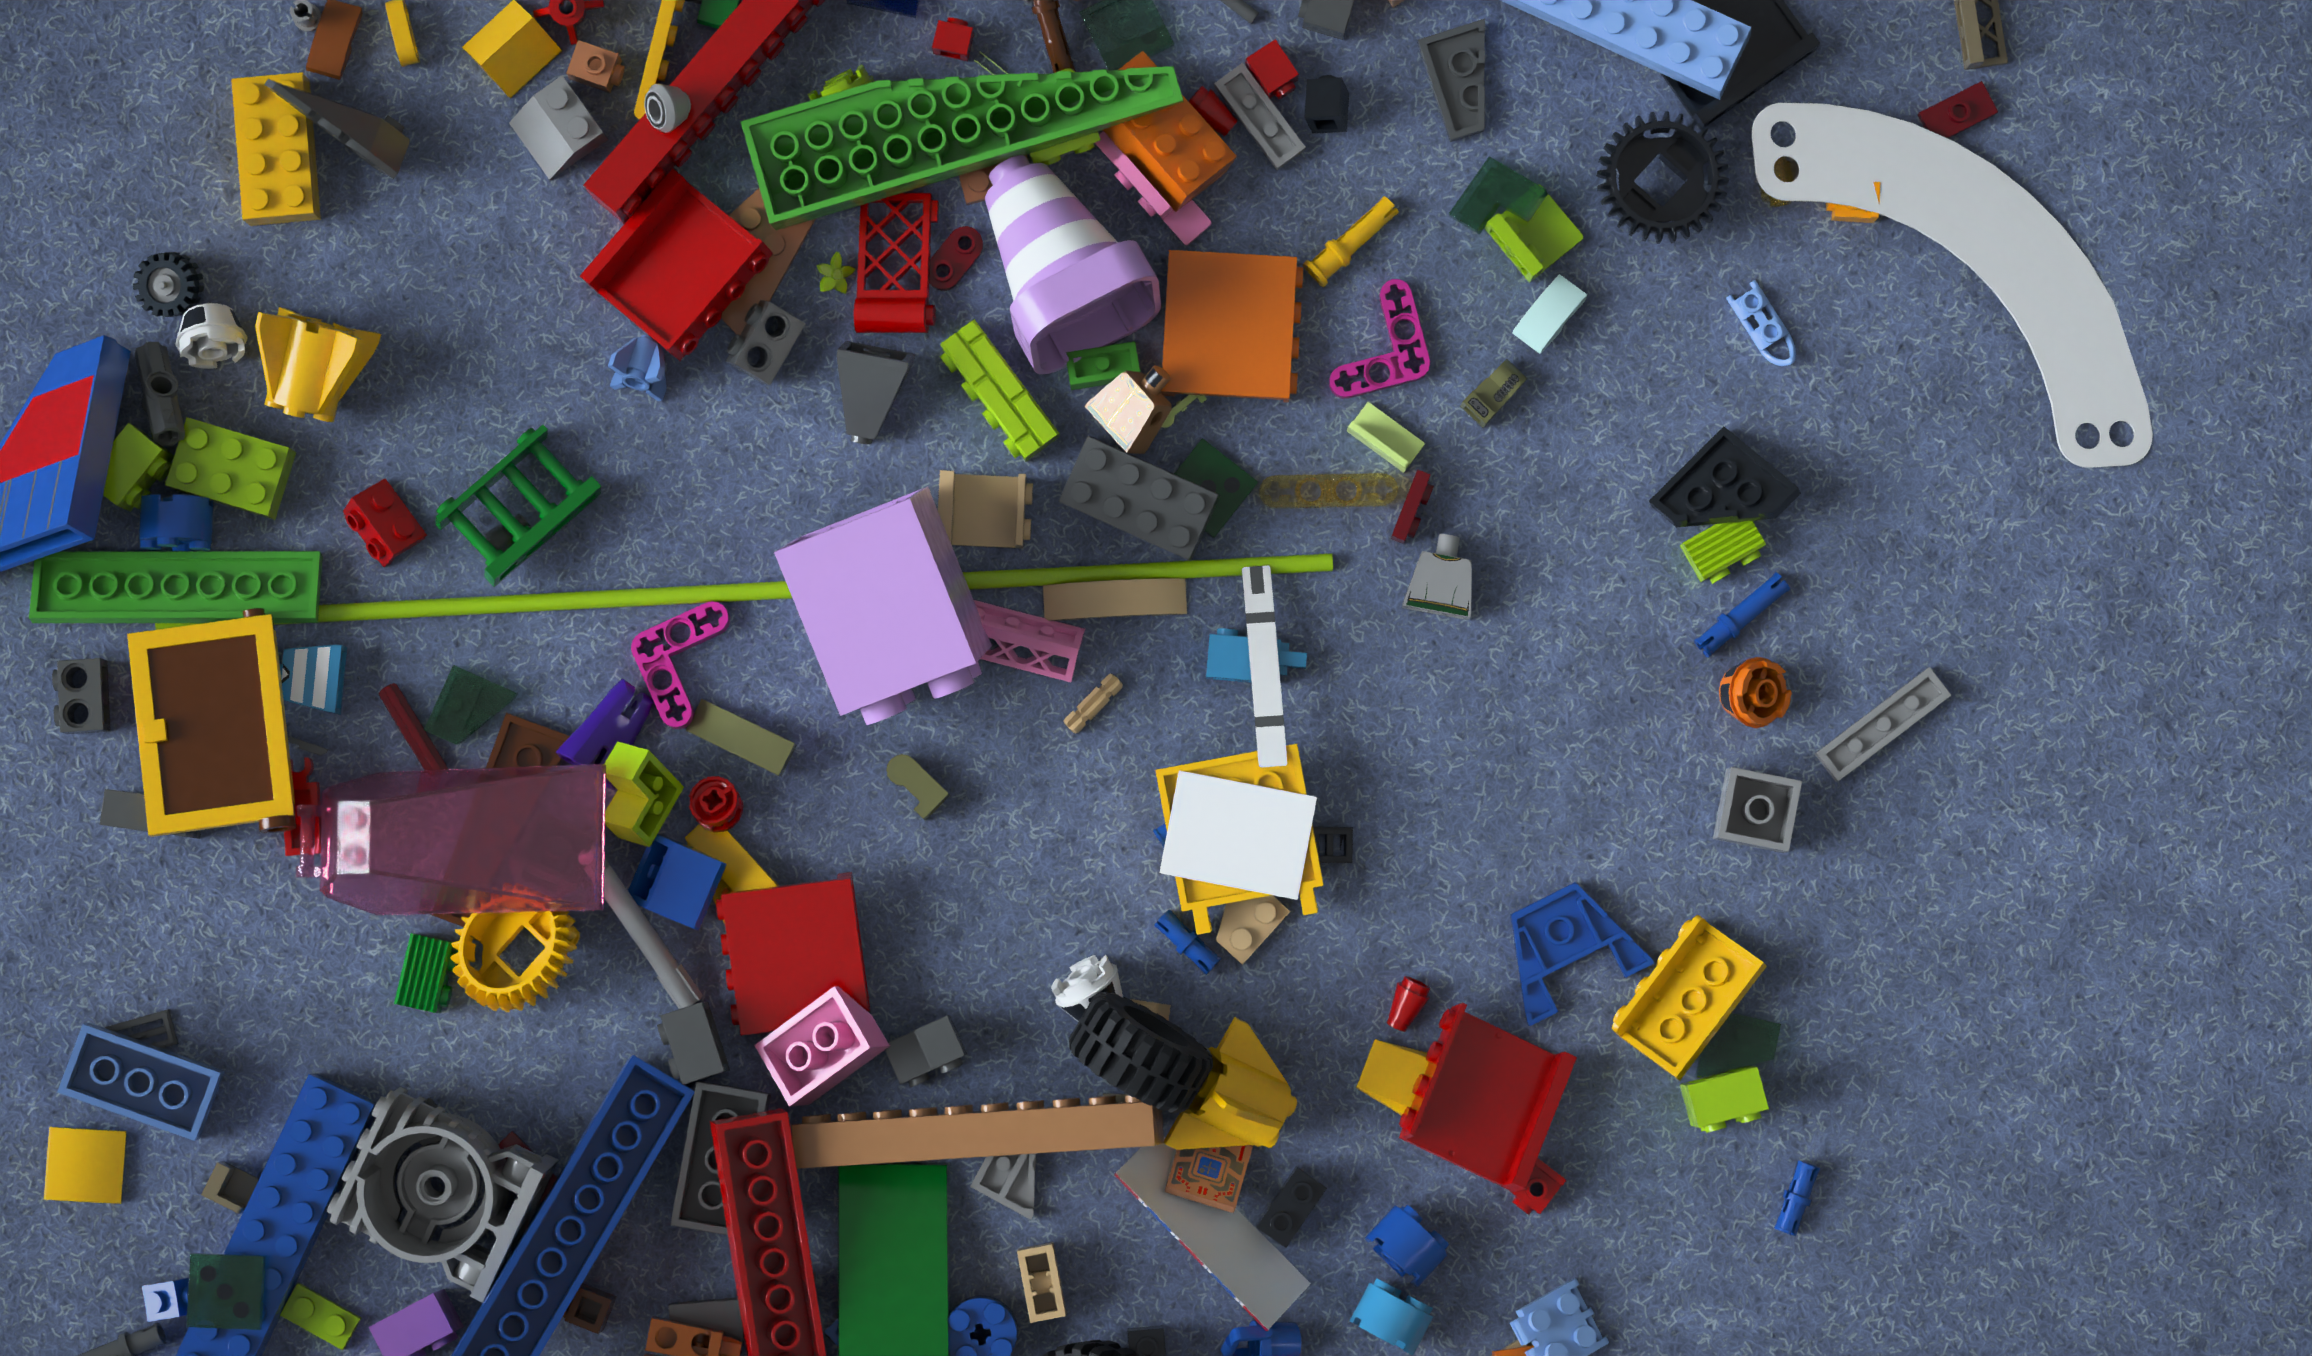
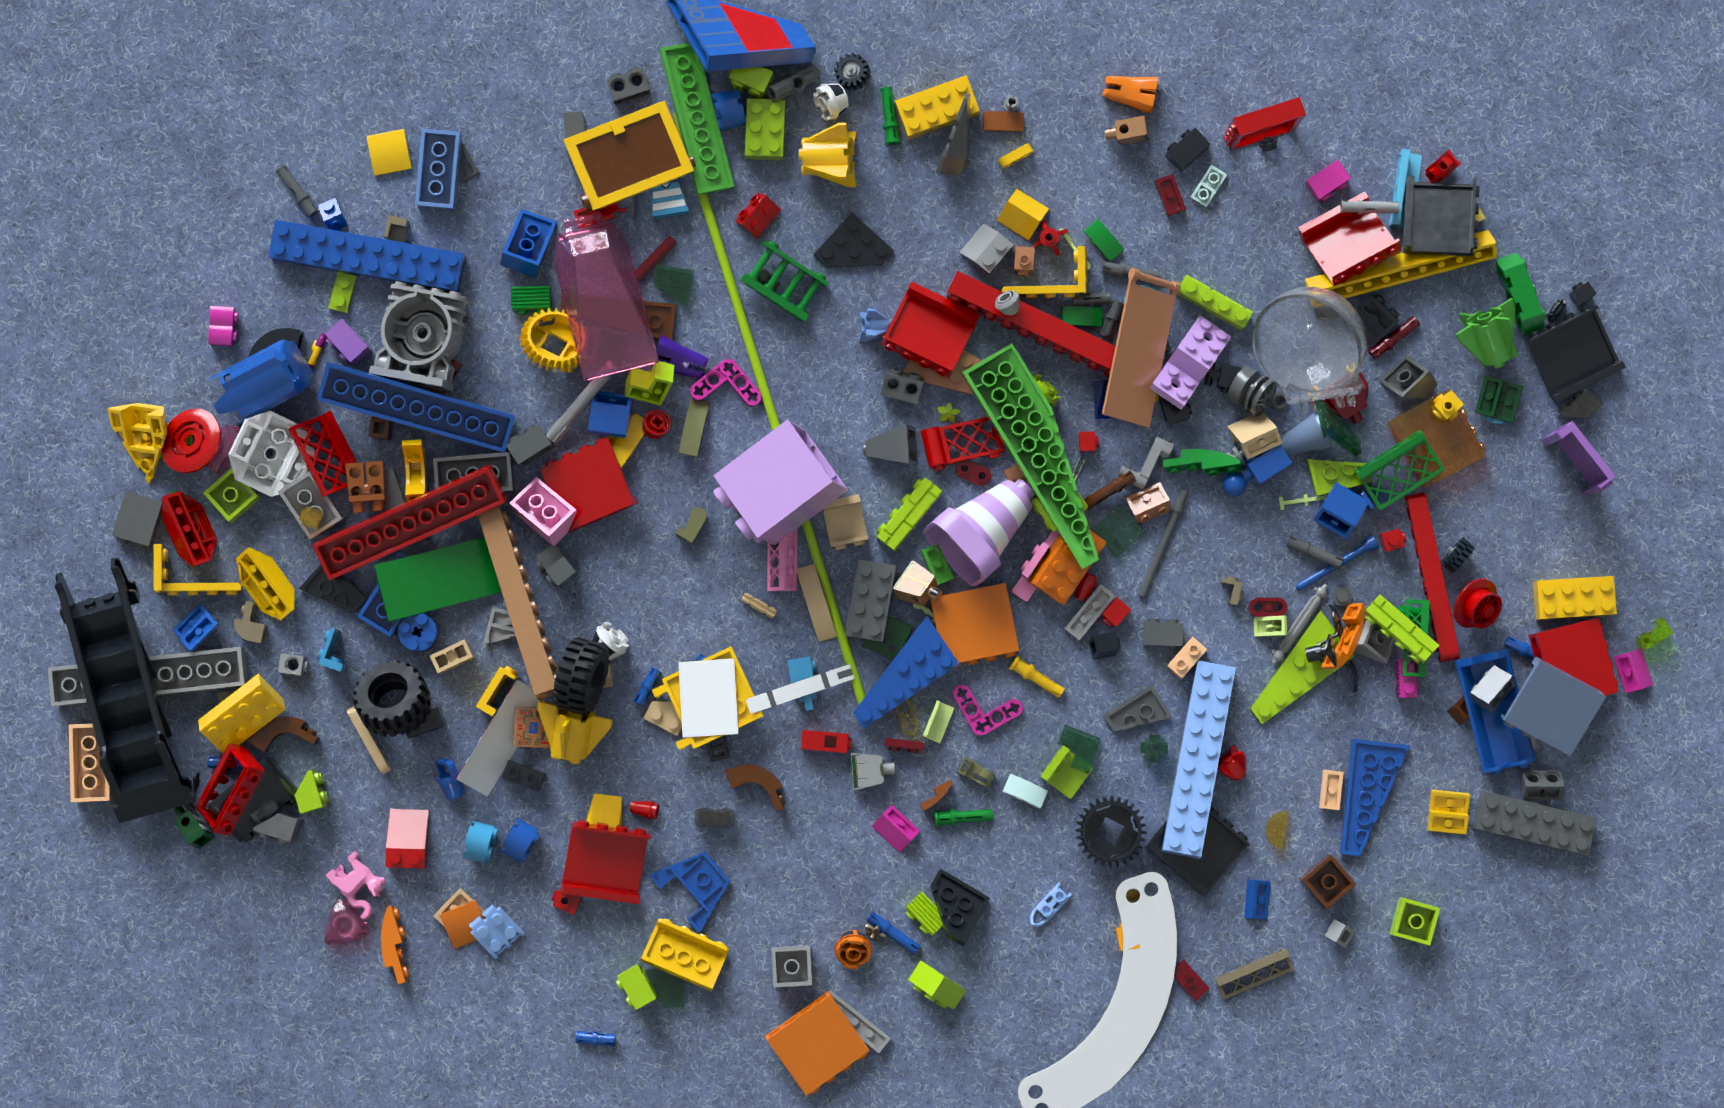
camera: 70 degrees right, 0 degrees up
(225, 1291) = (342, 241): tile -> none
(285, 241) = (890, 125): none -> green pin
(322, 953) = (528, 243): none -> blue slope
(487, 365) = (853, 246): none -> black plate
(680, 1263) = (415, 468): none -> yellow arch
(1143, 1245) = (493, 688): none -> yellow panel
(1279, 451) = (914, 668): none -> blue wing
(1369, 646) = (825, 741): none -> red brick
(1392, 797) = (751, 773): none -> reddish brown arch
(1452, 891) = (707, 817): none -> clear smoke brick
(1511, 464) = (940, 792): none -> dark orange slope
(1528, 77) = (1146, 748): none -> clear green brick
(1557, 562) = (895, 828): none -> dark pink panel
(1564, 452) = (953, 817): none -> green pin
(1733, 648) = (873, 932): none -> dark tan plant
(1859, 559) = (936, 986): none -> lime brick
(1907, 800) = (817, 1043): none -> orange panel

